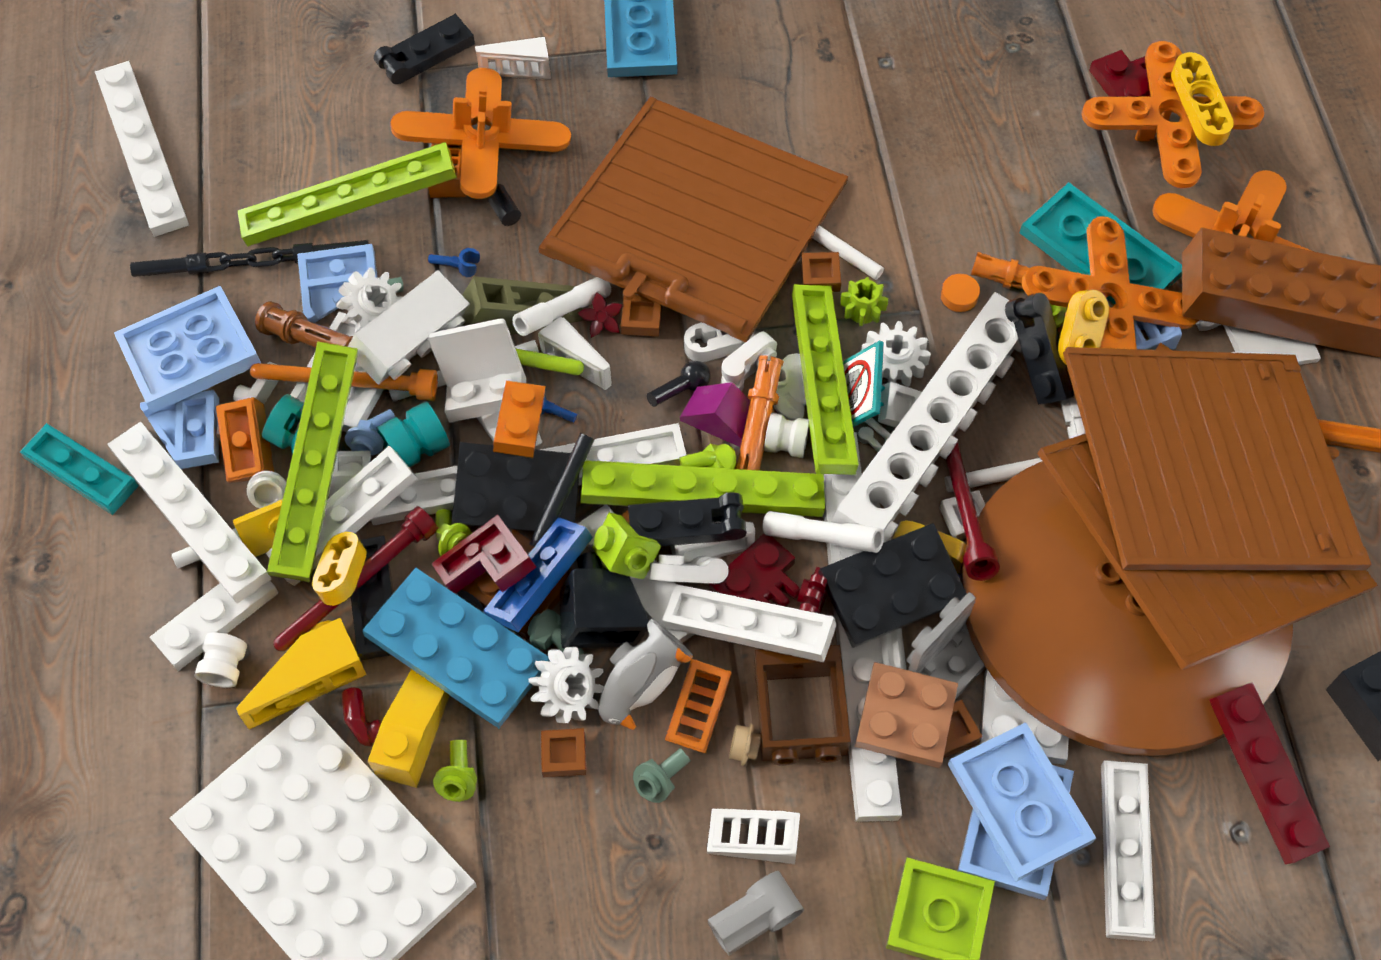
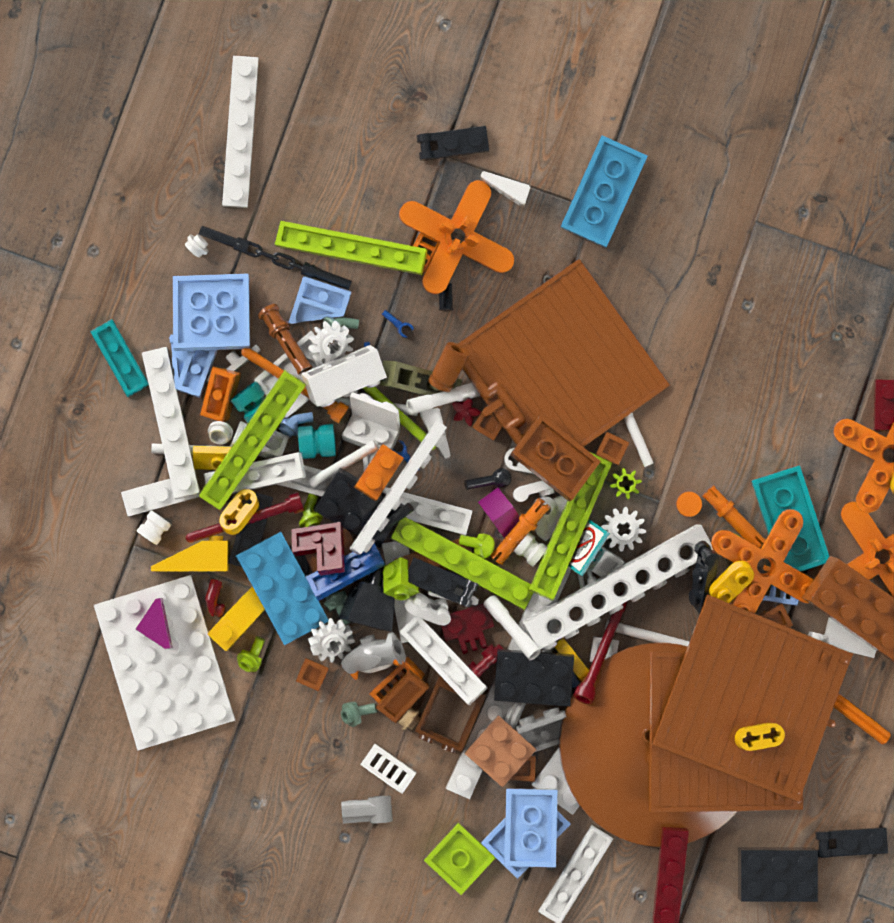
camera: 25 degrees right, 25 degrees up
(134, 285) = (197, 245): none -> white plate
(275, 789) = (155, 624): none -> magenta slope
(467, 434) = (343, 463): none -> white bar
(548, 255) = (449, 367): none -> dark orange piece
(558, 435) = (393, 497): none -> white plate
(716, 712) = (402, 696): none -> dark orange tile
(753, 296) = (555, 457): none -> dark orange plate
(1255, 488) = (758, 731): none -> yellow beam

